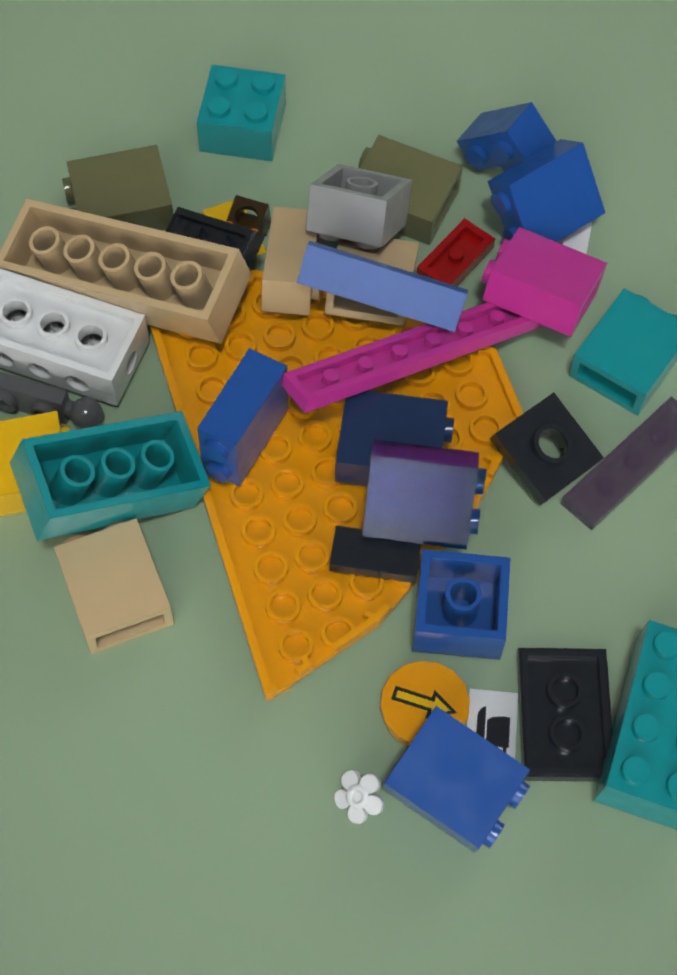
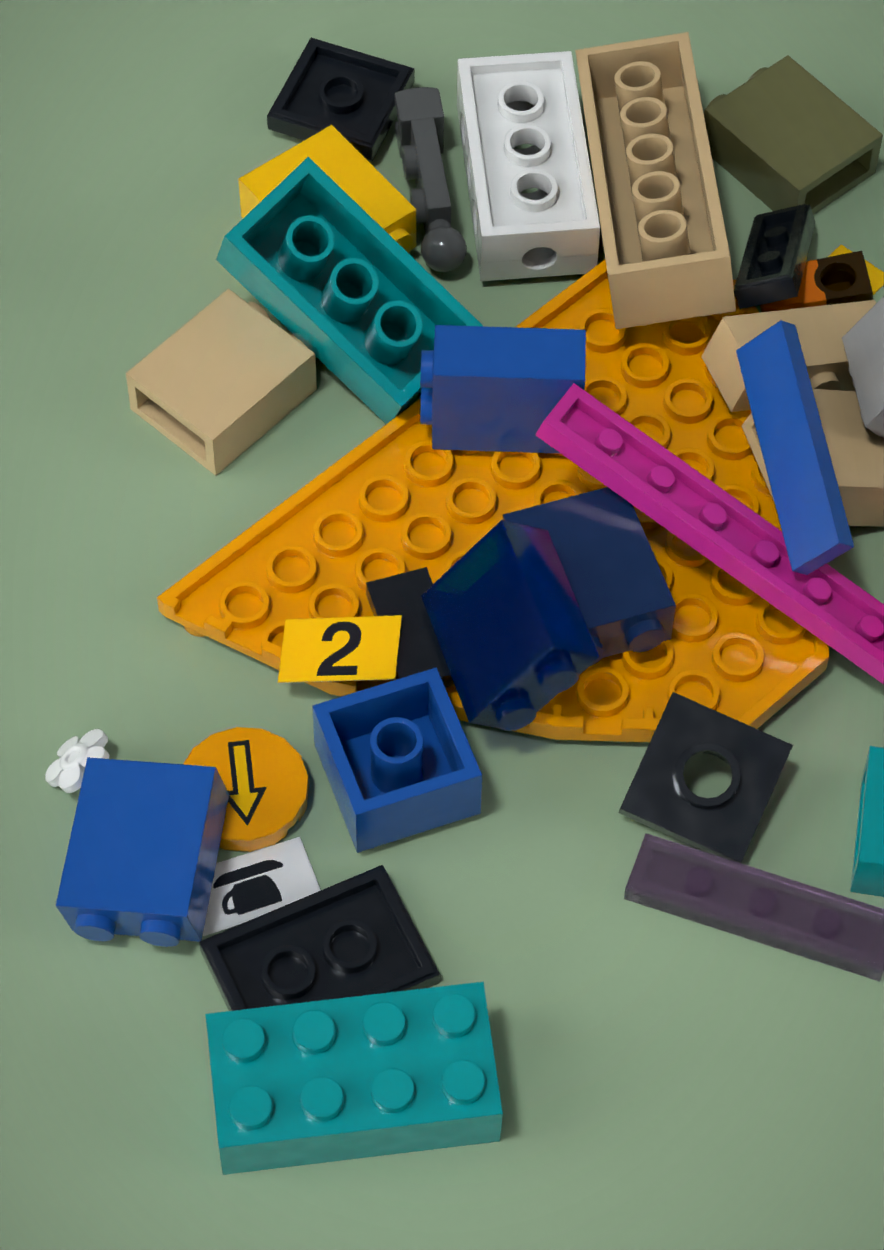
camera: 65 degrees right, 5 degrees down
(366, 601) = (340, 649): none -> yellow sticker

